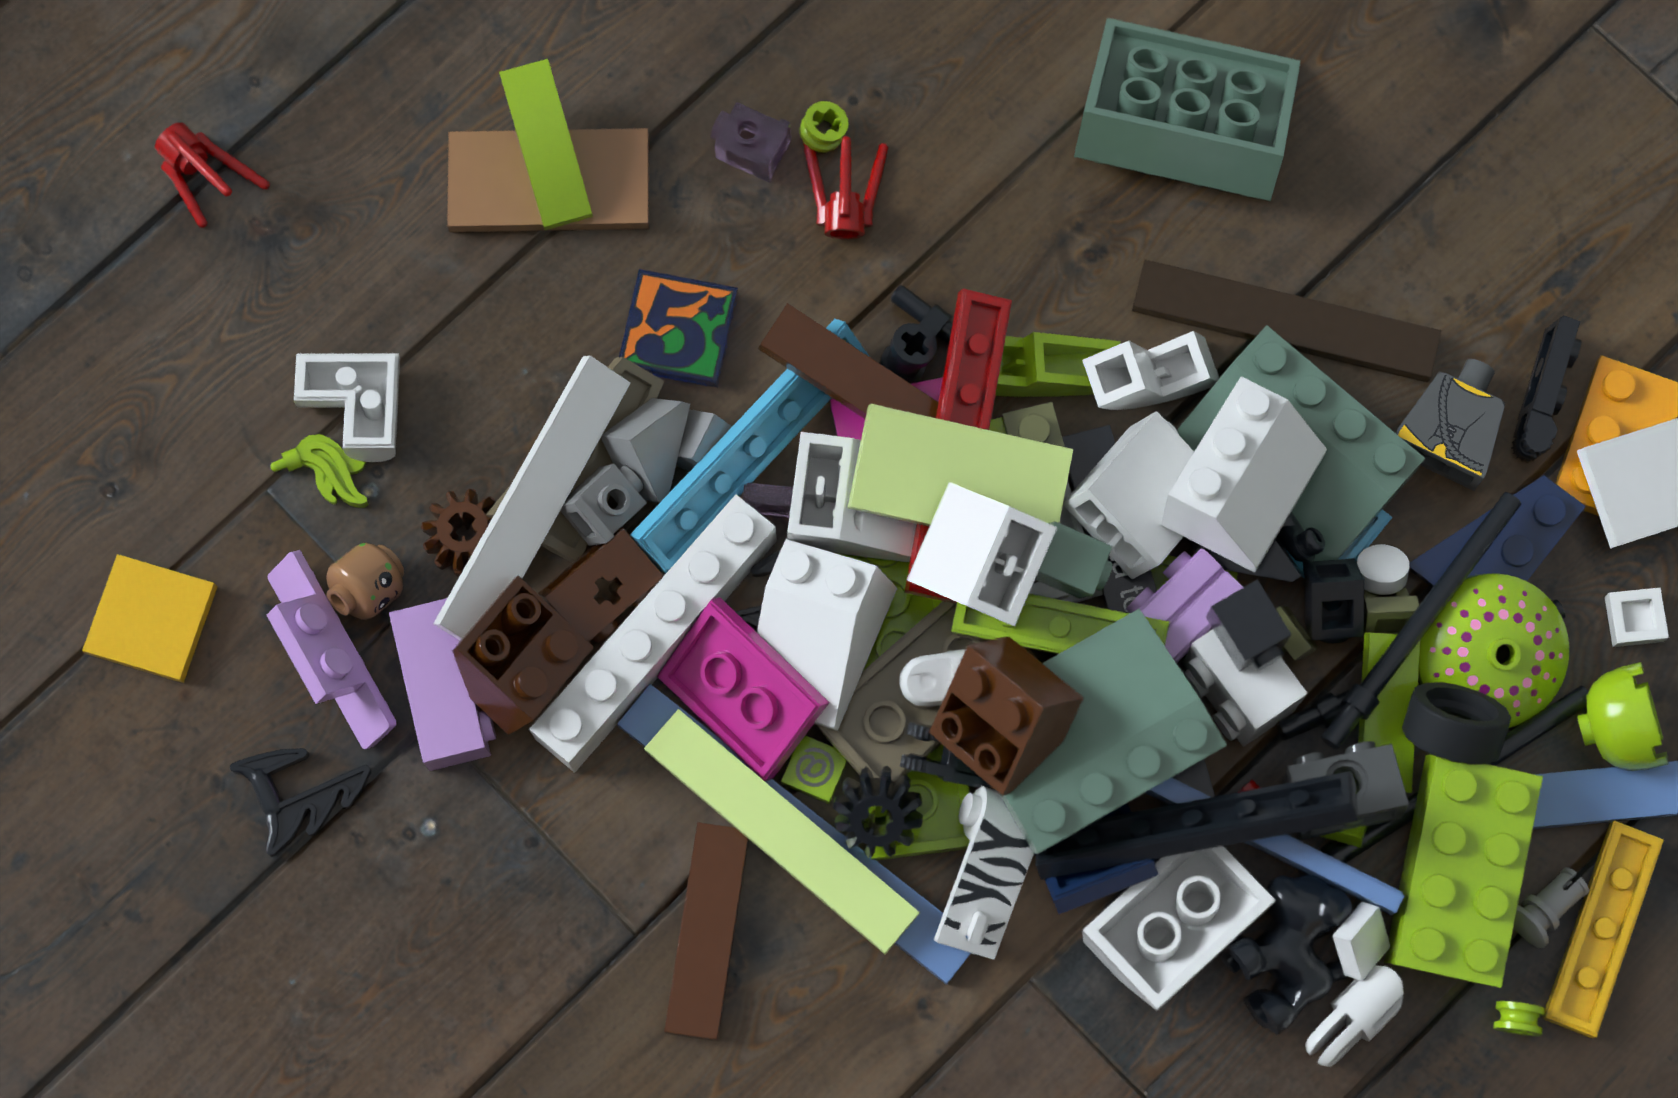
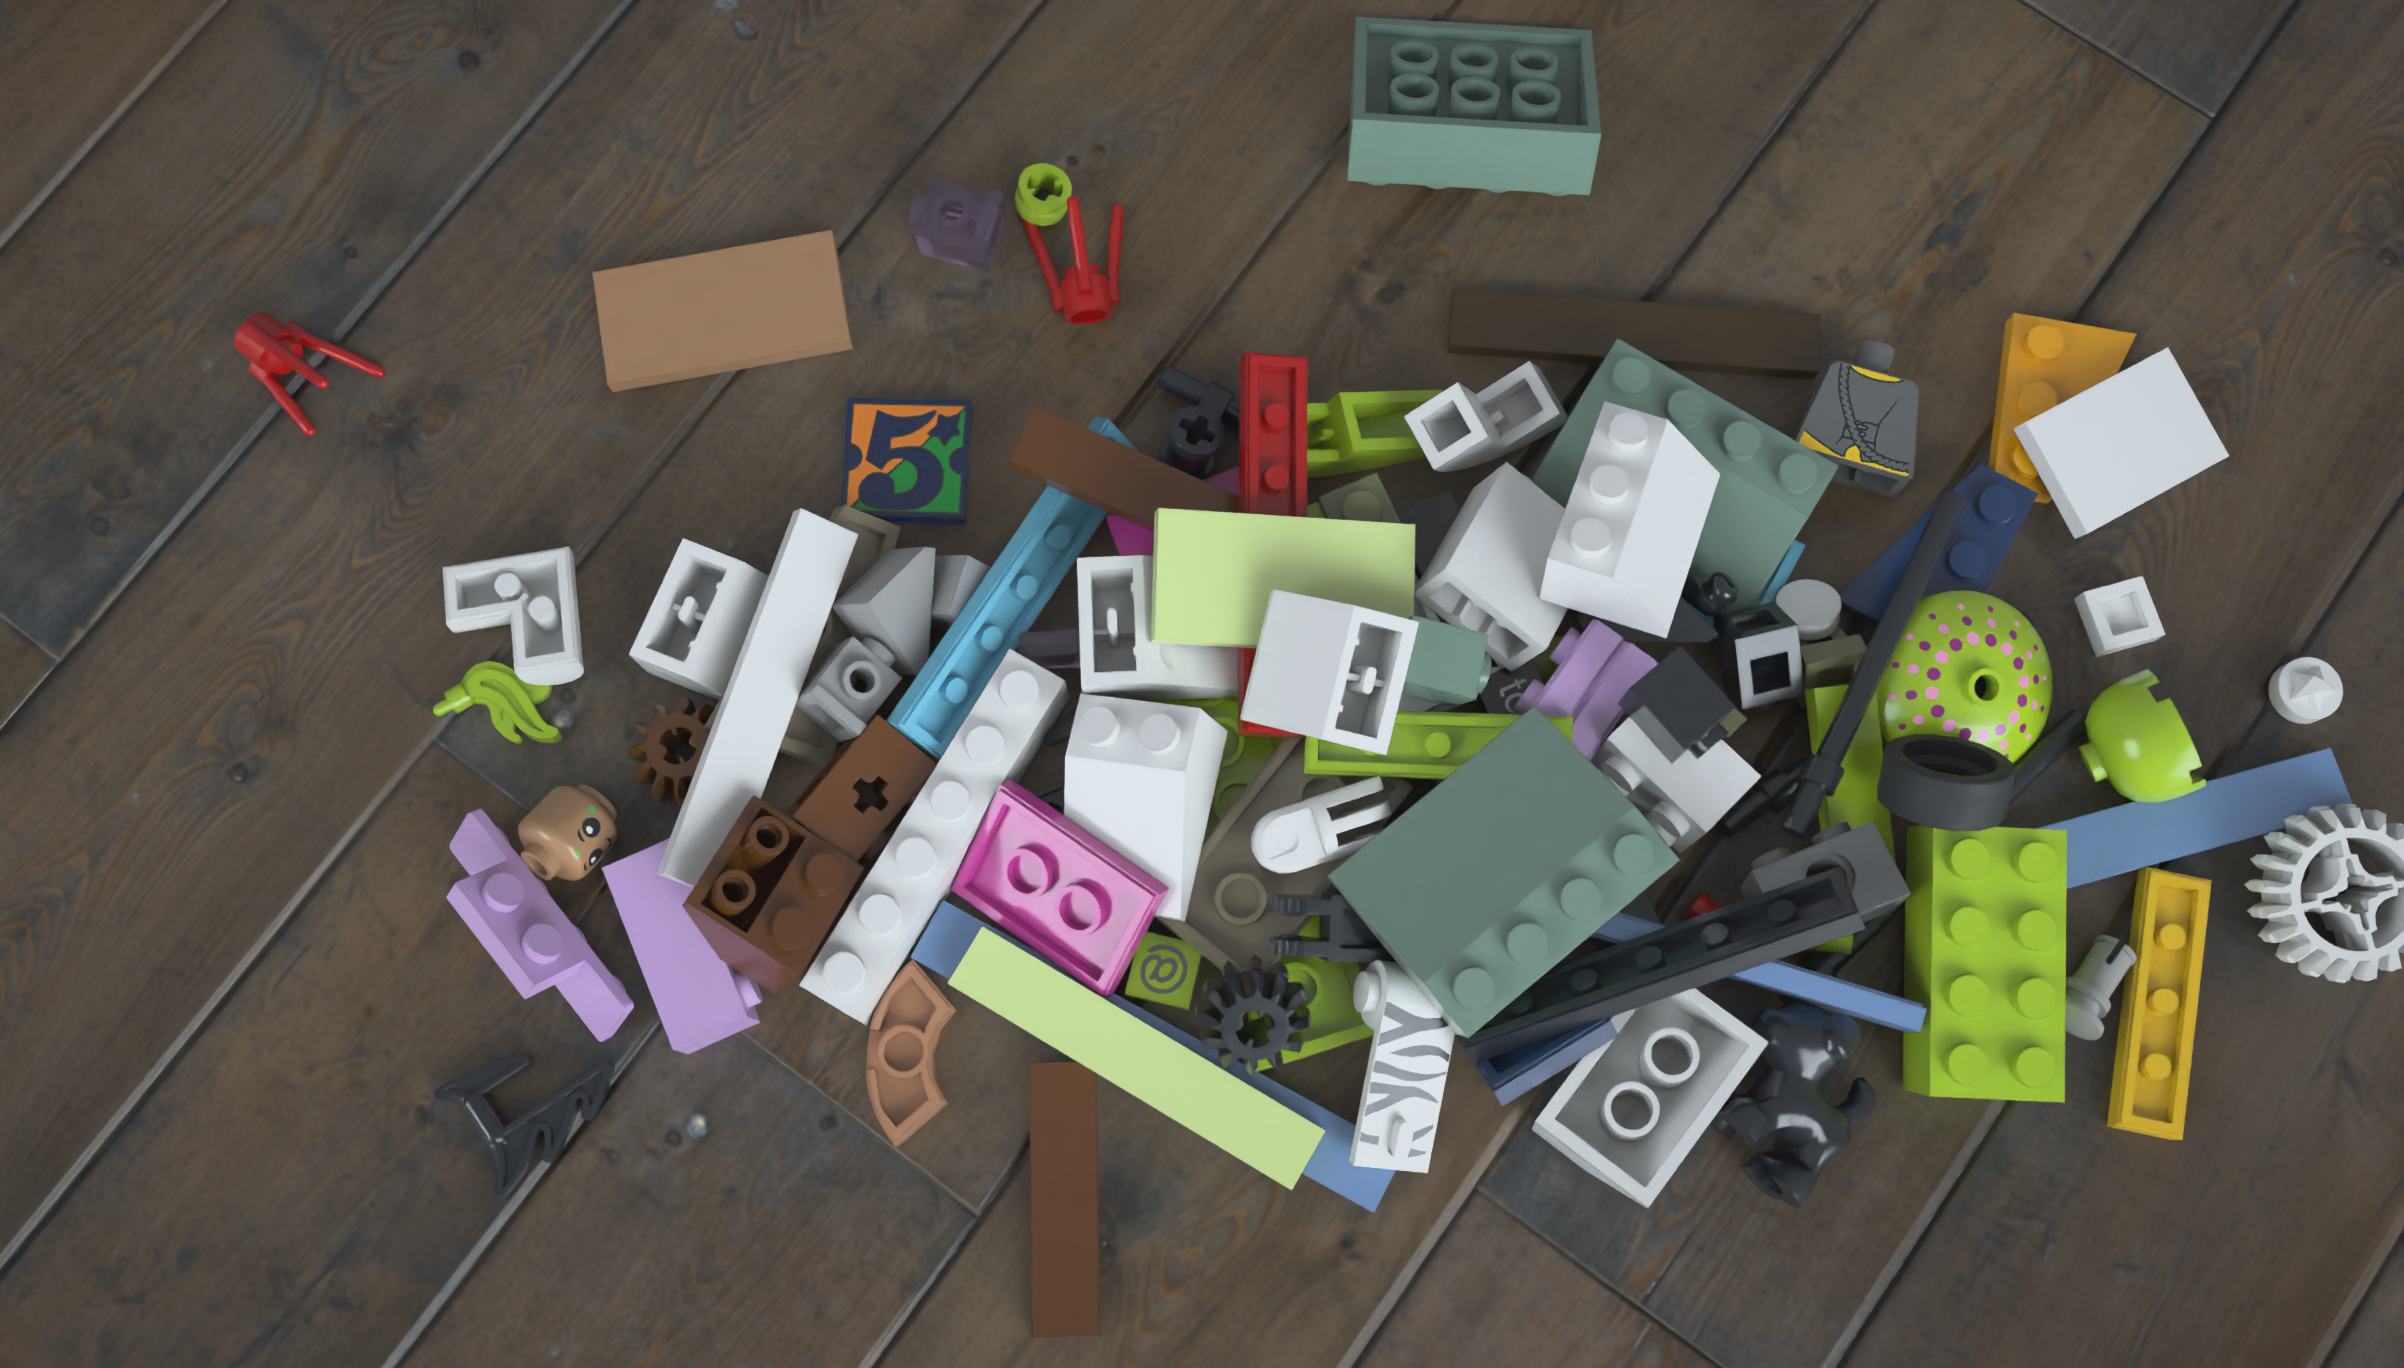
camera: 10 degrees left, 0 degrees up
(150, 618) = (309, 924): yellow tile -> none
(495, 430) = (699, 619): none -> white slope
(546, 144) = (709, 264): lime slope -> none
(599, 798) = (902, 1053): none -> nougat tile
(1004, 712) = (1394, 867): reddish brown slope -> none
(1361, 941) = (1879, 1072): white tile -> none
(1362, 1007) = (1896, 1153): white arm -> none
(1519, 1018) = (2085, 1133): lime bush -> none
(1545, 389) = (1957, 363): black hinge -> none

